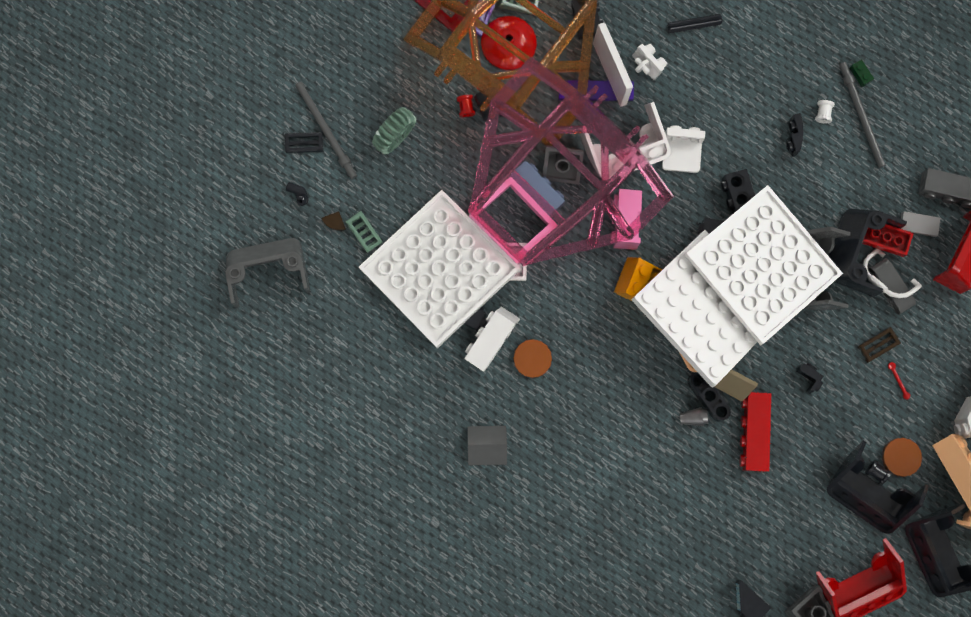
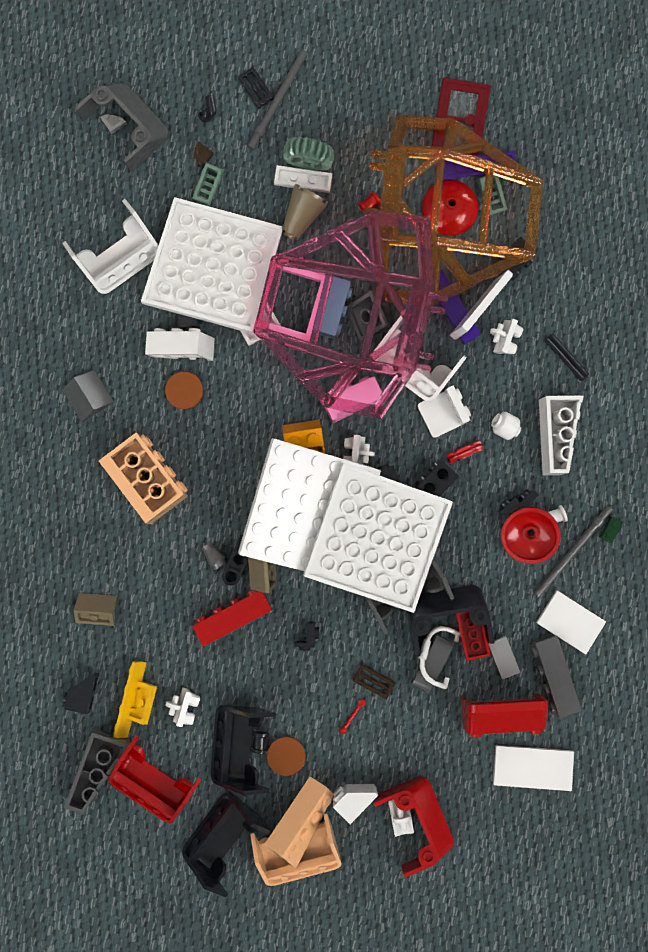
camera: 65 degrees right, 5 degrees up
(257, 281) = (113, 122): none -> light grey tile
(383, 343) = (121, 259): none -> white windscreen
(408, 149) = (307, 179): none -> white tile
(439, 165) = (302, 211): none -> dark tan cone
(600, 446) = (132, 481): none -> light nougat brick
(667, 238) = (360, 450): none -> white hips
(680, 548) = (95, 609): none -> dark tan panel
(724, 106) = (506, 425): none -> white head
(725, 154) = (464, 451): none -> red axle
(756, 67) = (558, 431): none -> white wedge
(783, 558) = (136, 701): none -> yellow bracket
(809, 522) = (181, 715): none -> white hips
(841, 140) = (530, 547): none -> red dish
(920, 151) = (571, 622): none -> white tile

